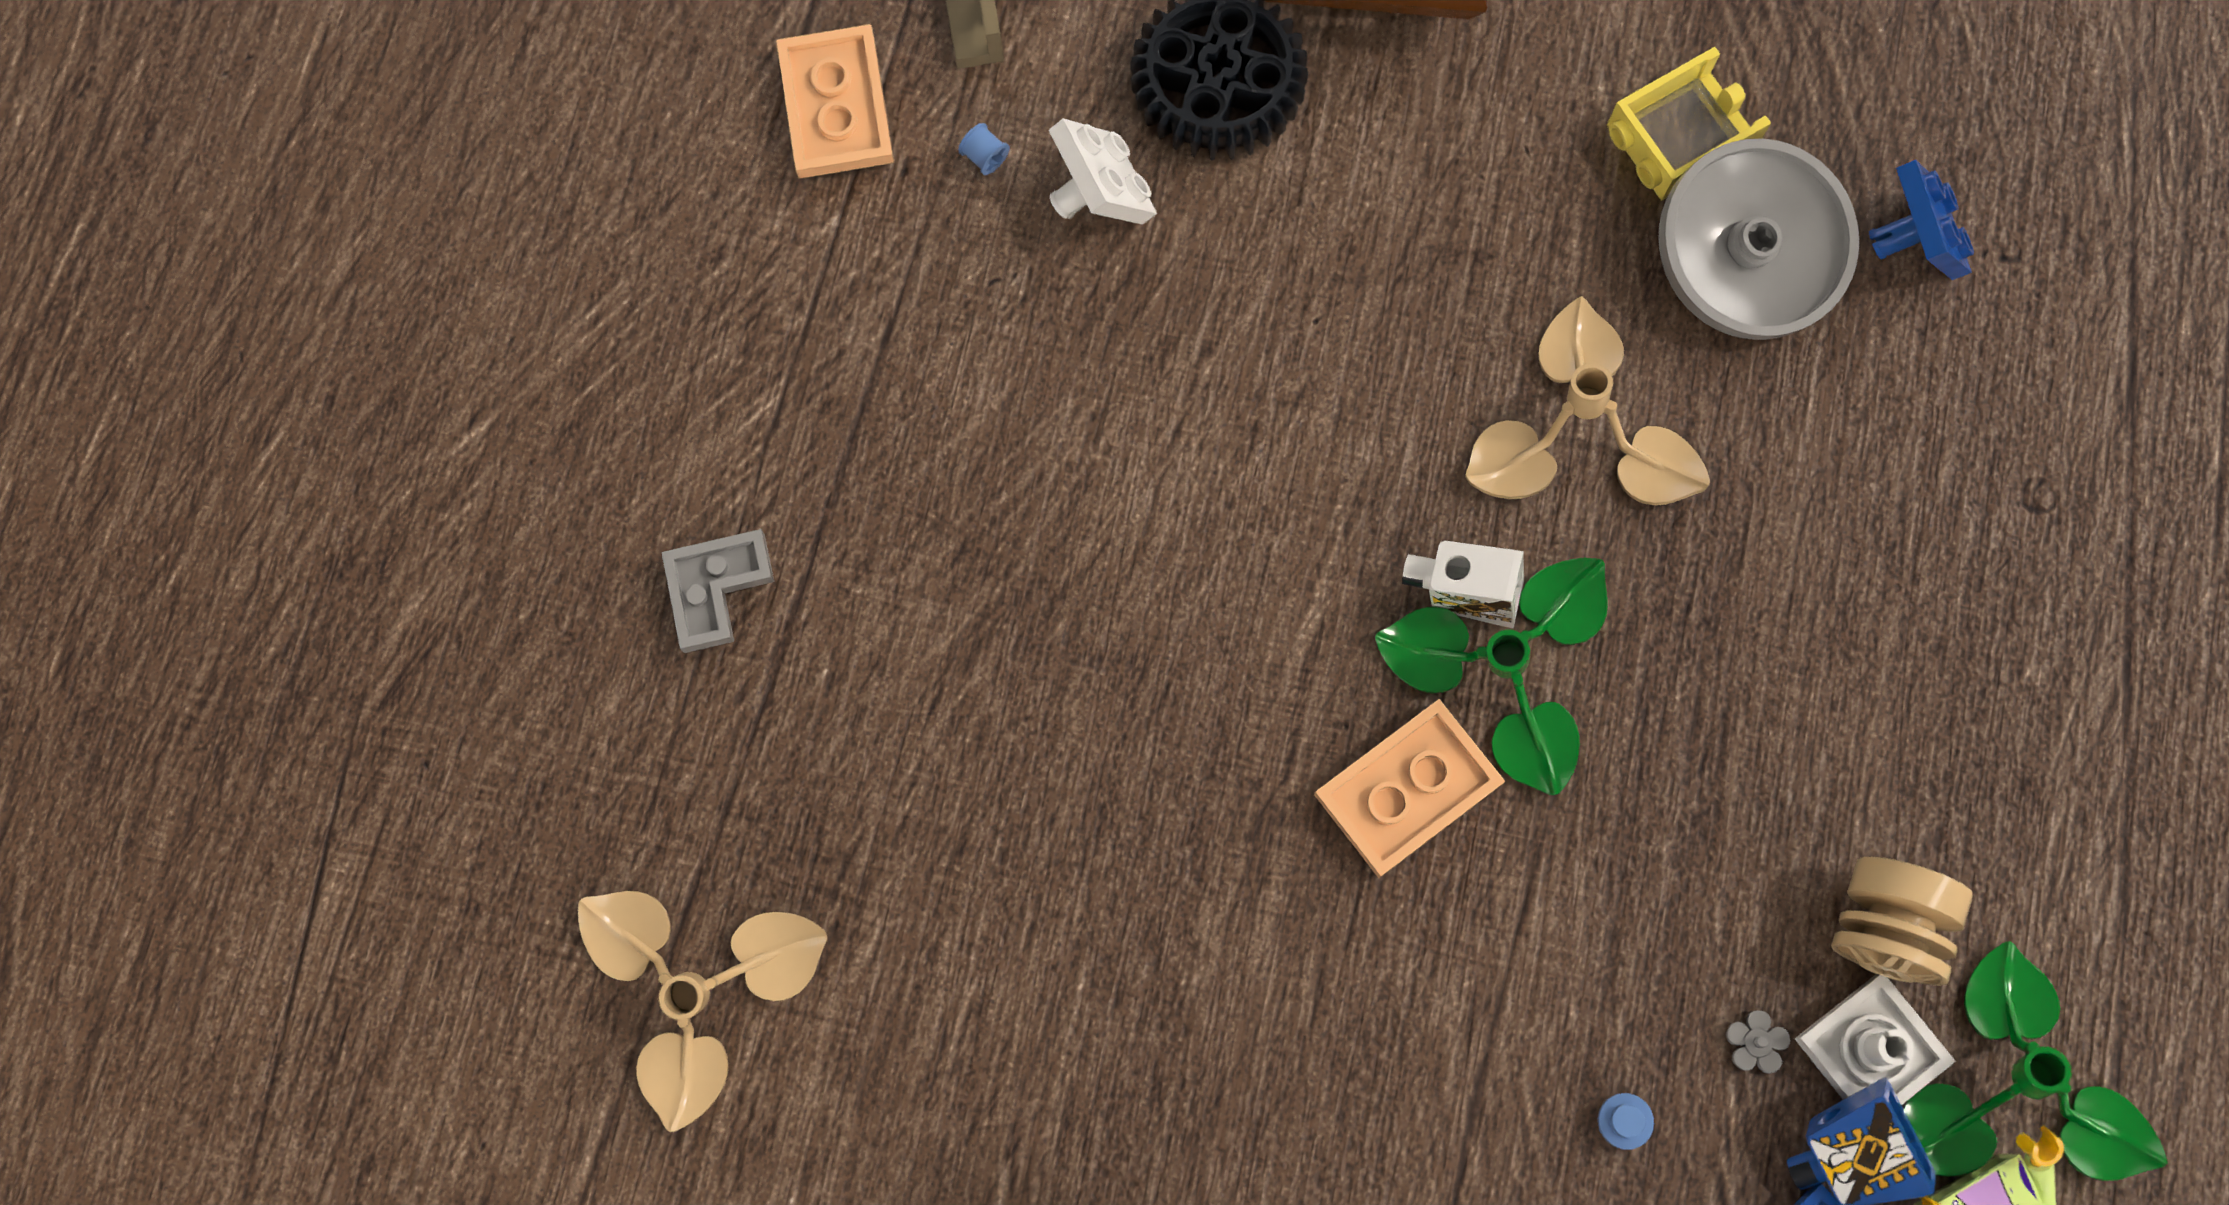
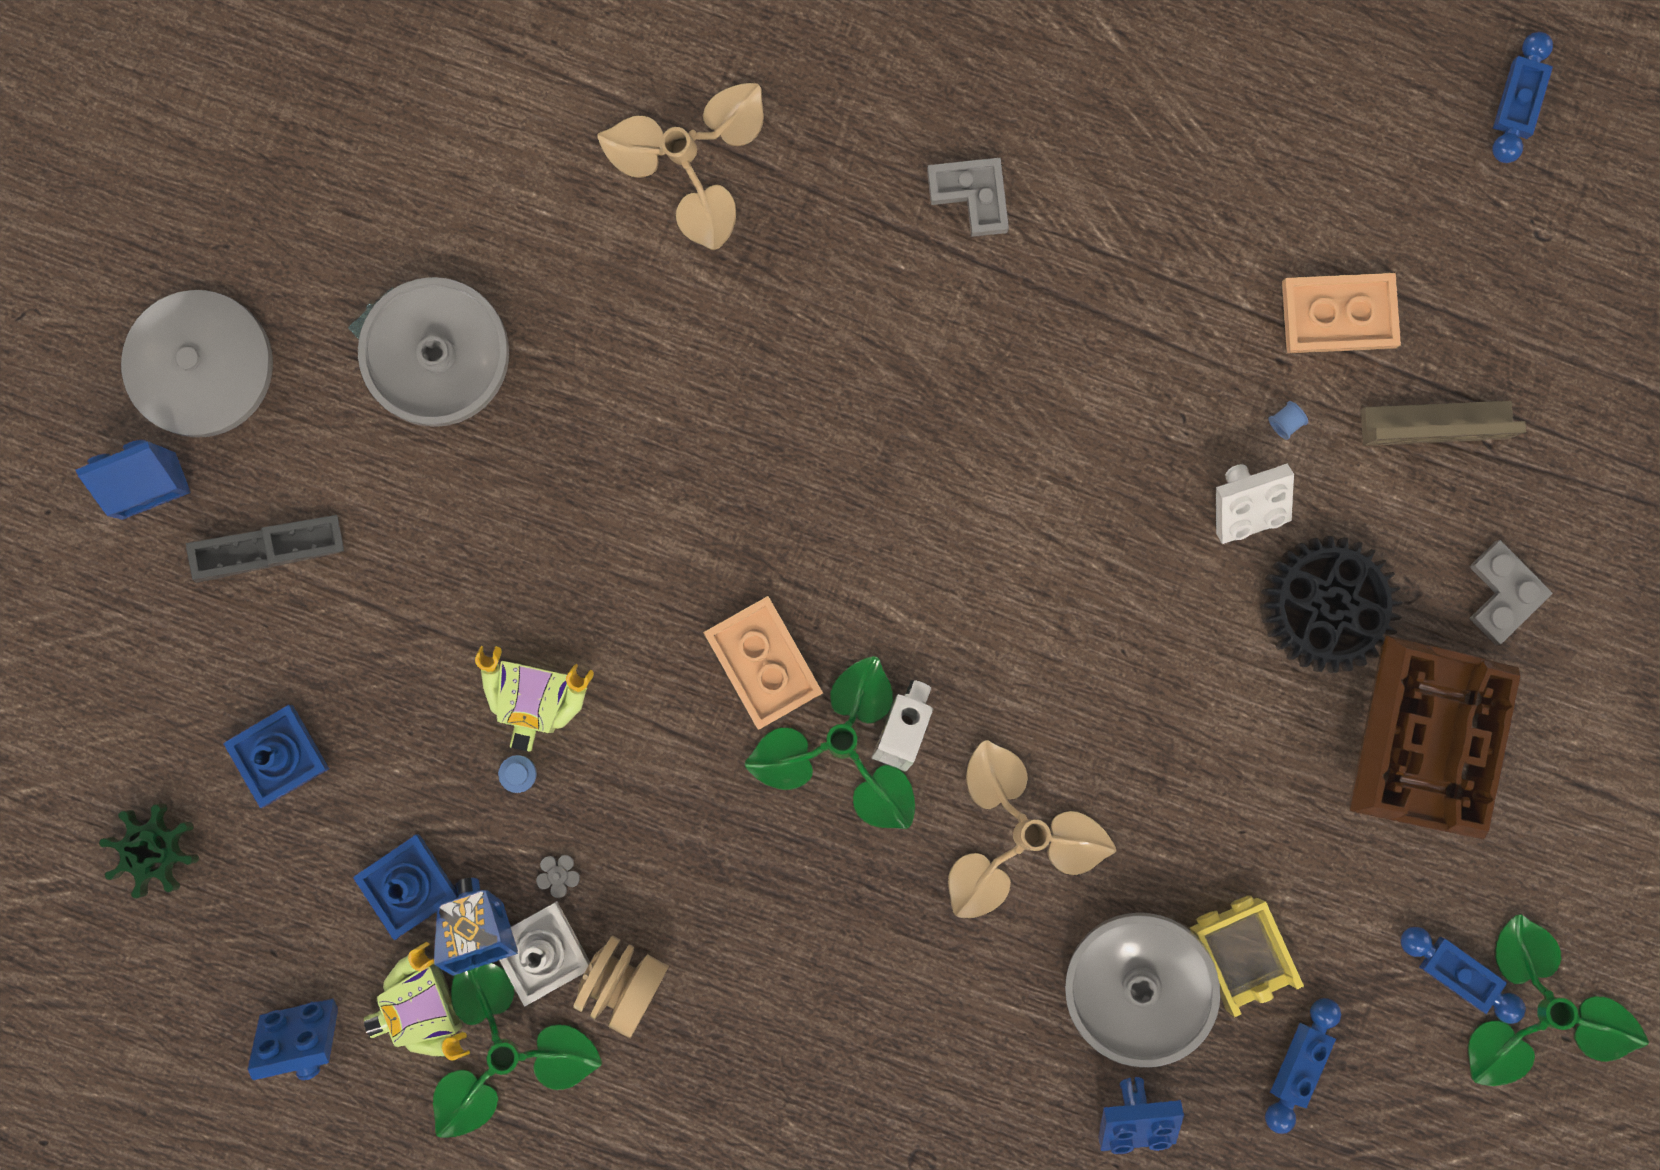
camera: 90 degrees right, 10 degrees up
(1513, 1112) = (530, 696): none -> torso
(1810, 43) = (1302, 1065): none -> blue plate

